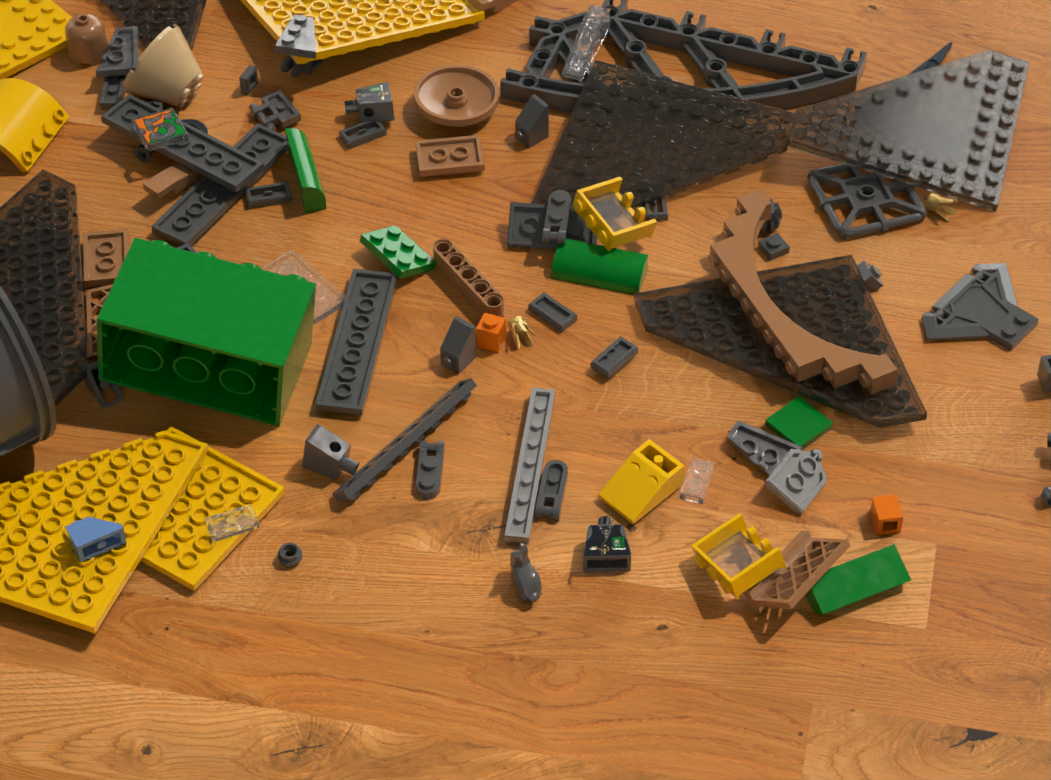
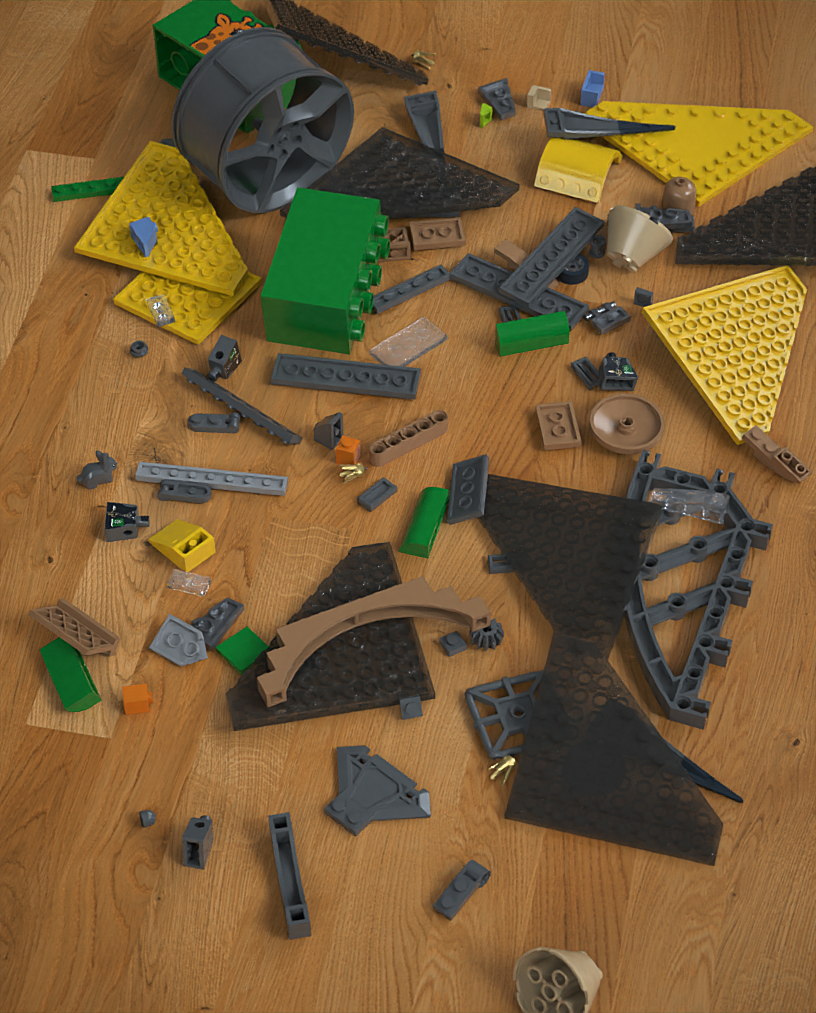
camera: 90 degrees right, 0 degrees up
(160, 129) = (558, 238): tile -> none
(298, 38) = (668, 306): wing -> none
(397, 251) = (441, 393): green plate -> none
(533, 122) = (593, 474): dark grey slope -> none
(557, 217) = (464, 482): dark grey plate -> none
(611, 214) = (468, 517): yellow window -> none
(614, 357) = (321, 530): dark grey plate -> none
(736, 556) = (94, 593): yellow window -> none

